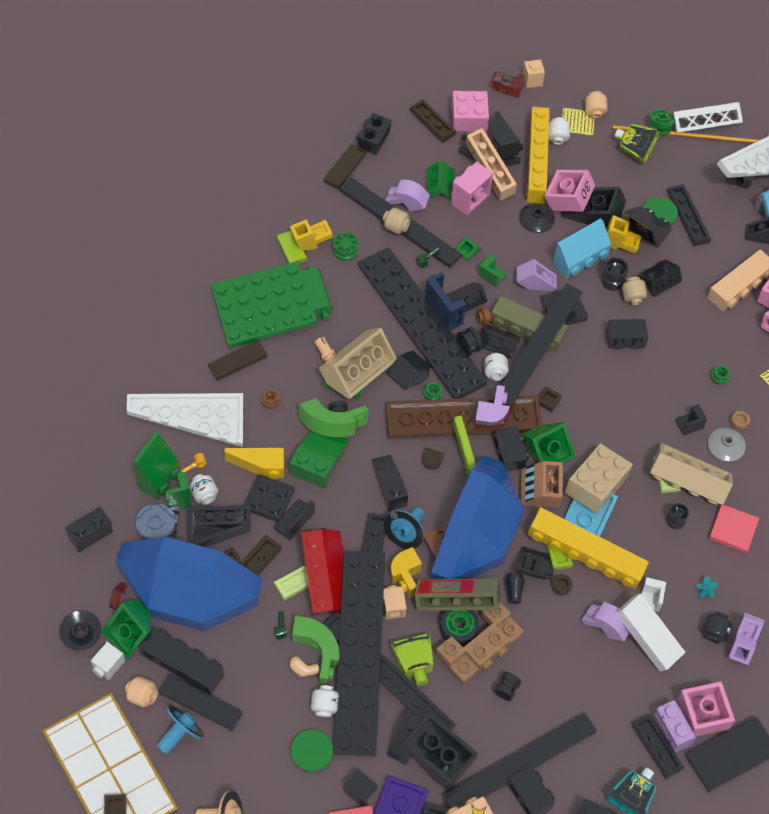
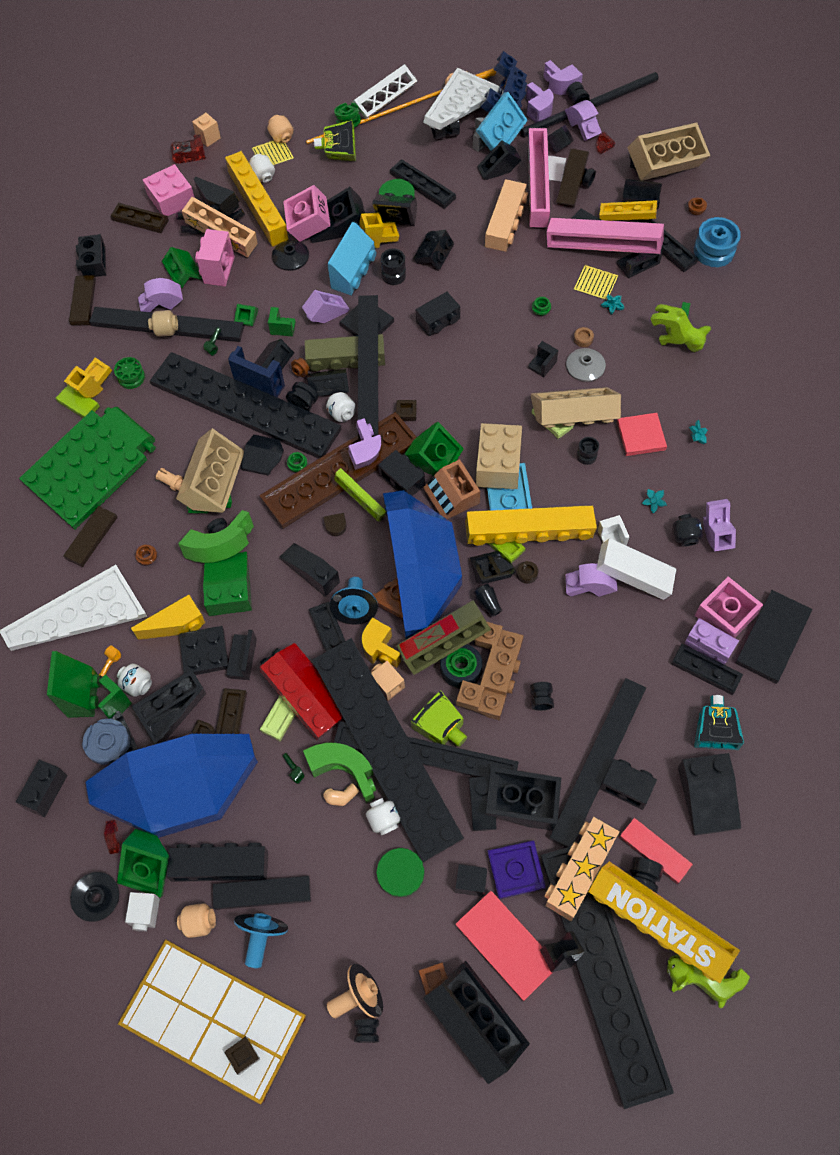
camera: 25 degrees left, 5 degrees up
(634, 290) = (419, 272): tan head -> none

